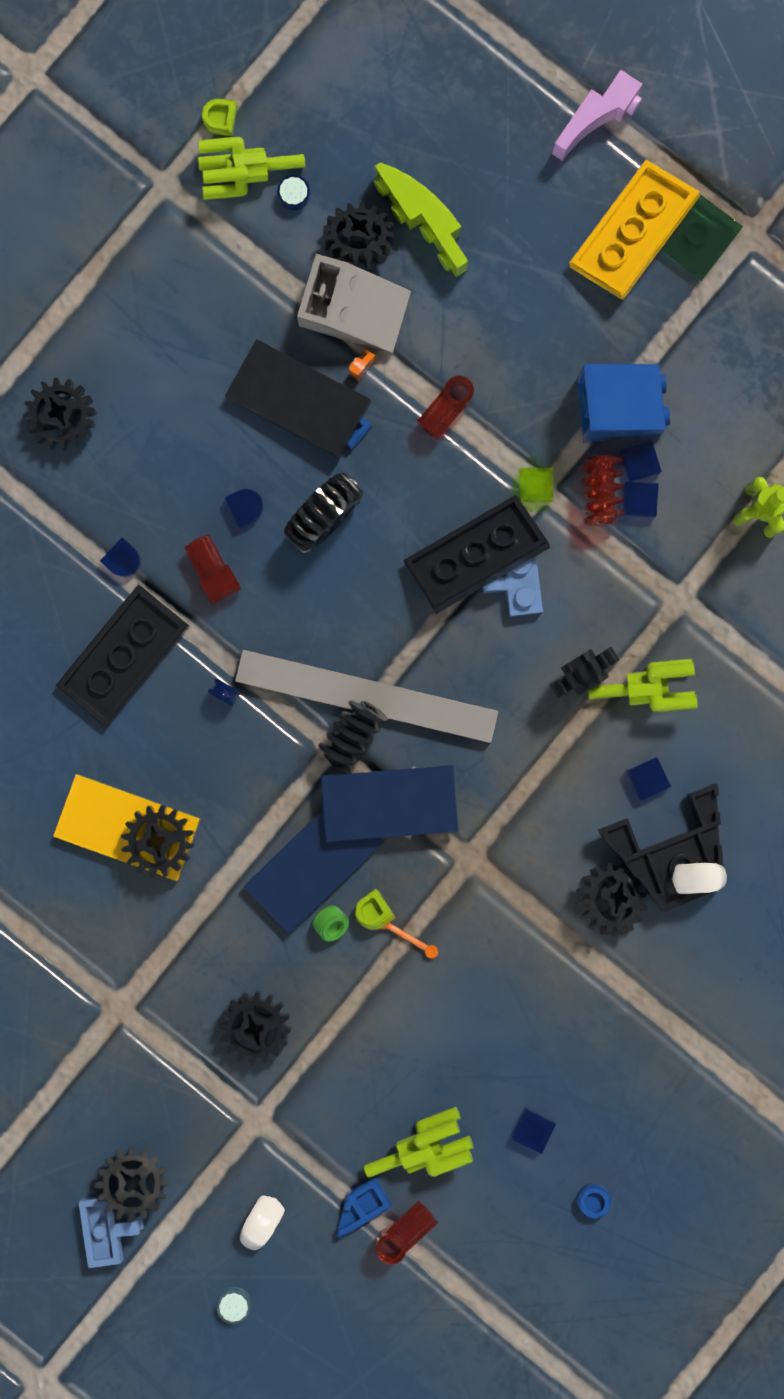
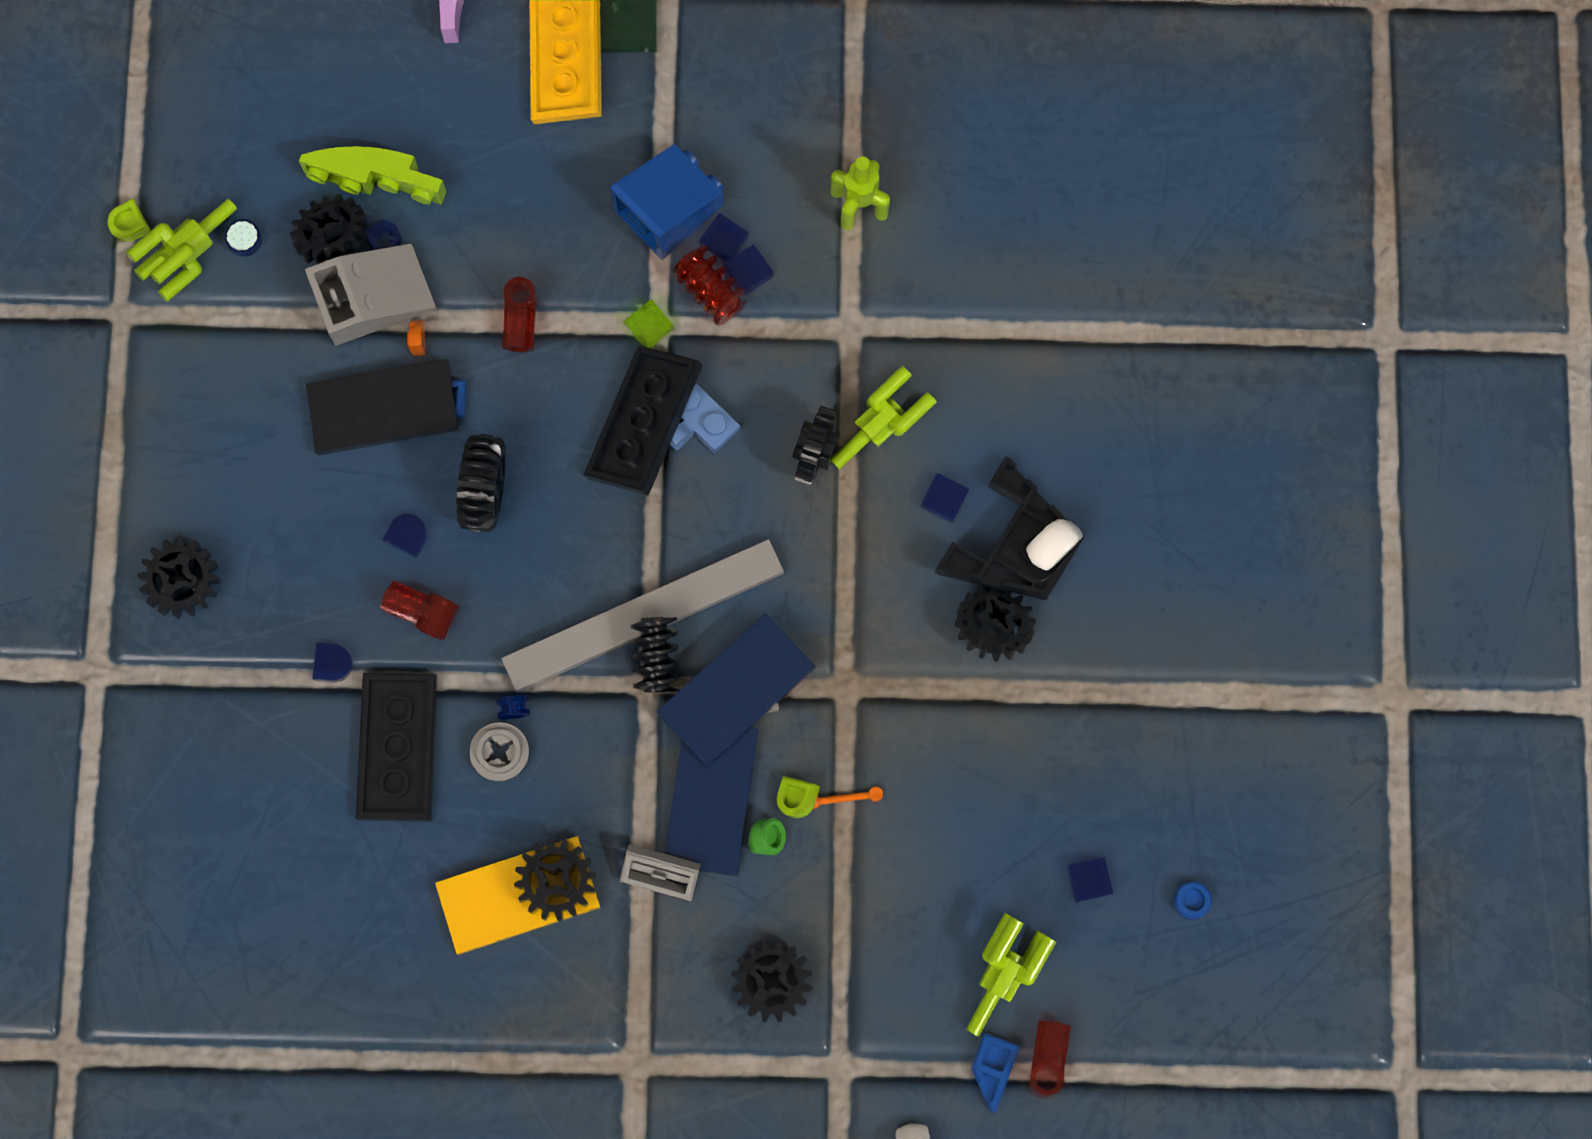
camera: 40 degrees left, 10 degrees down
(180, 704) = (482, 749): none -> light grey gear
(237, 890) = (661, 867): none -> light grey tile
(405, 269) = (383, 225): none -> clear blue bush

